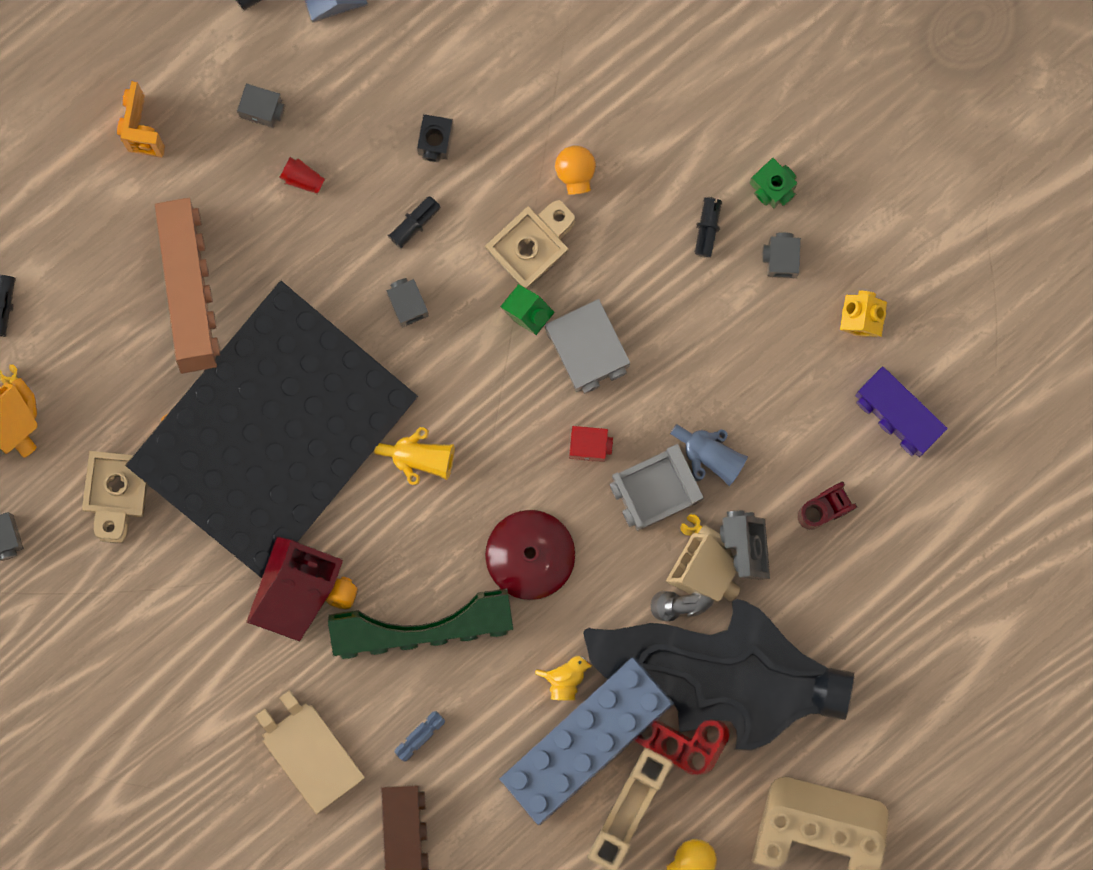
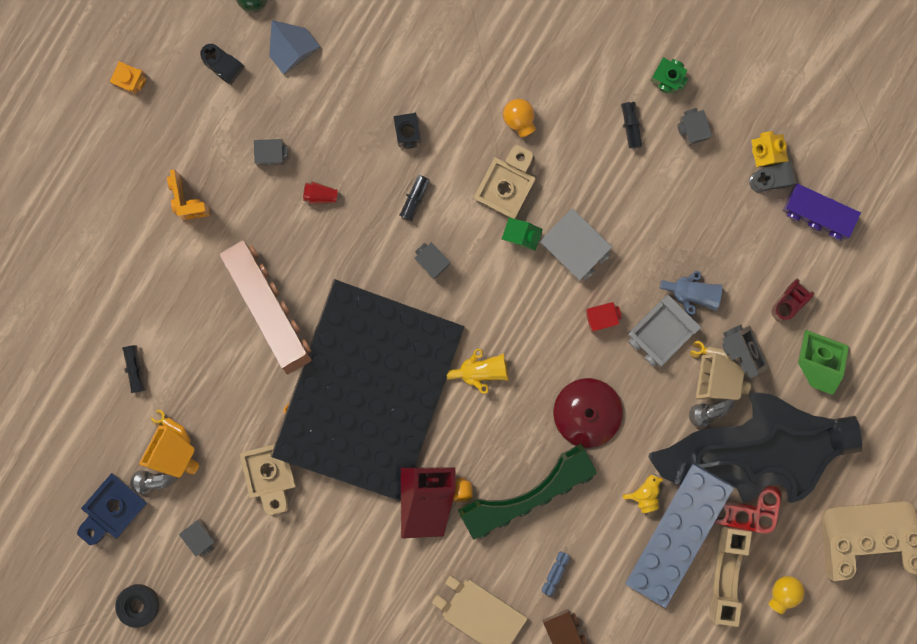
camera: 20 degrees left, 5 degrees up
(837, 593) = (822, 361): none -> bright green slope
(862, 351) = (776, 177): none -> dark grey piece

